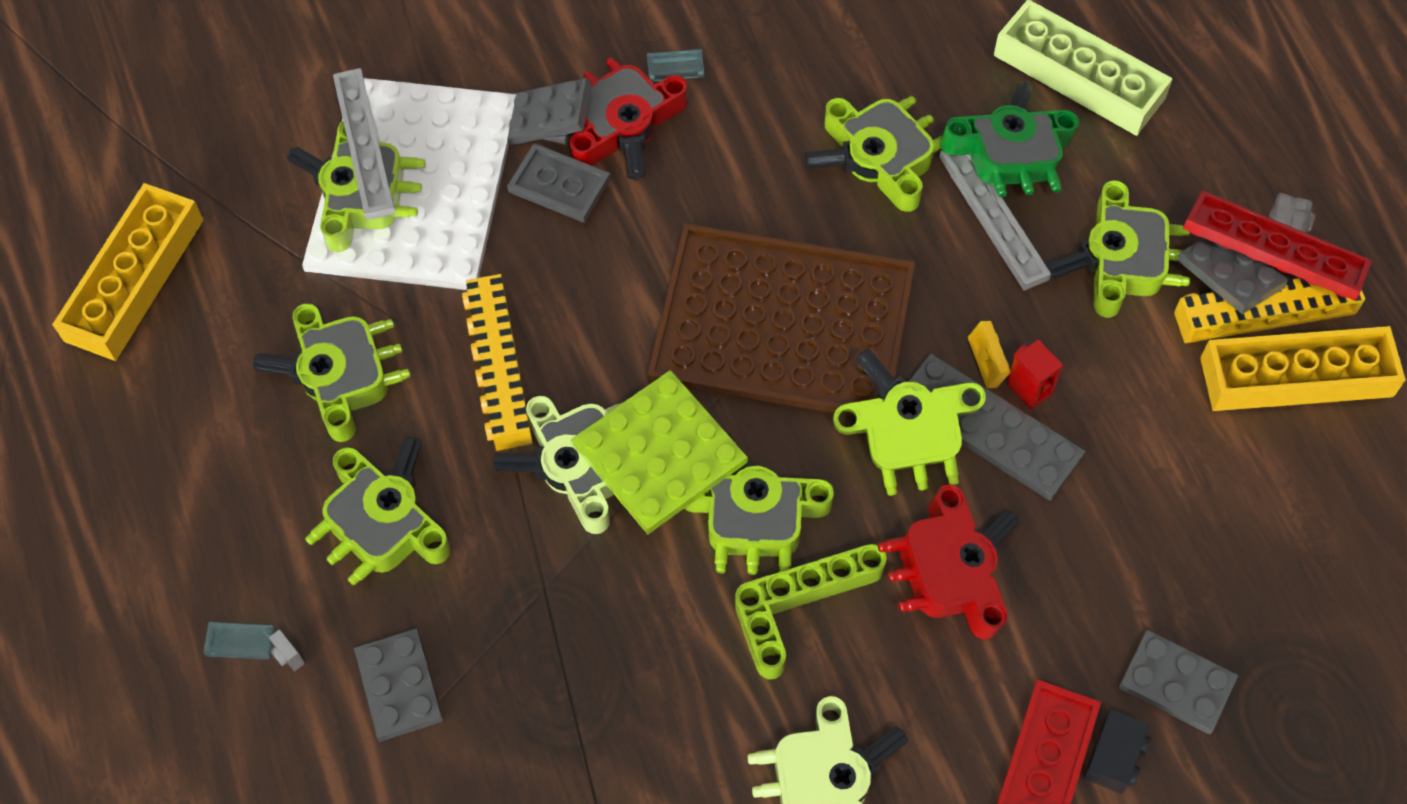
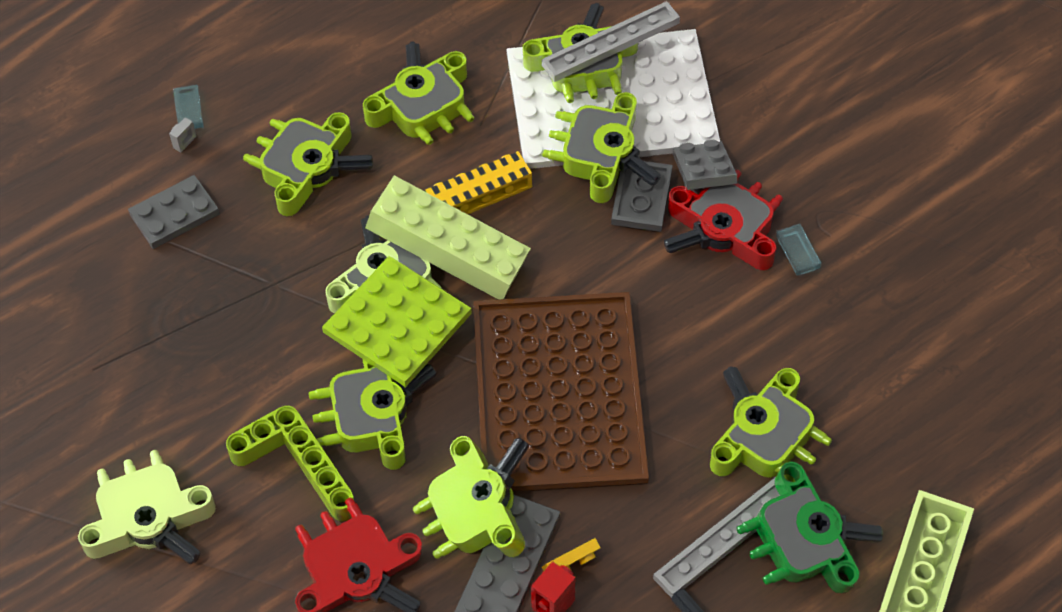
camera: 75 degrees right, 5 degrees down
(492, 196) = (601, 145): none -> piece
(566, 374) = (447, 237): none -> yellowish green brick

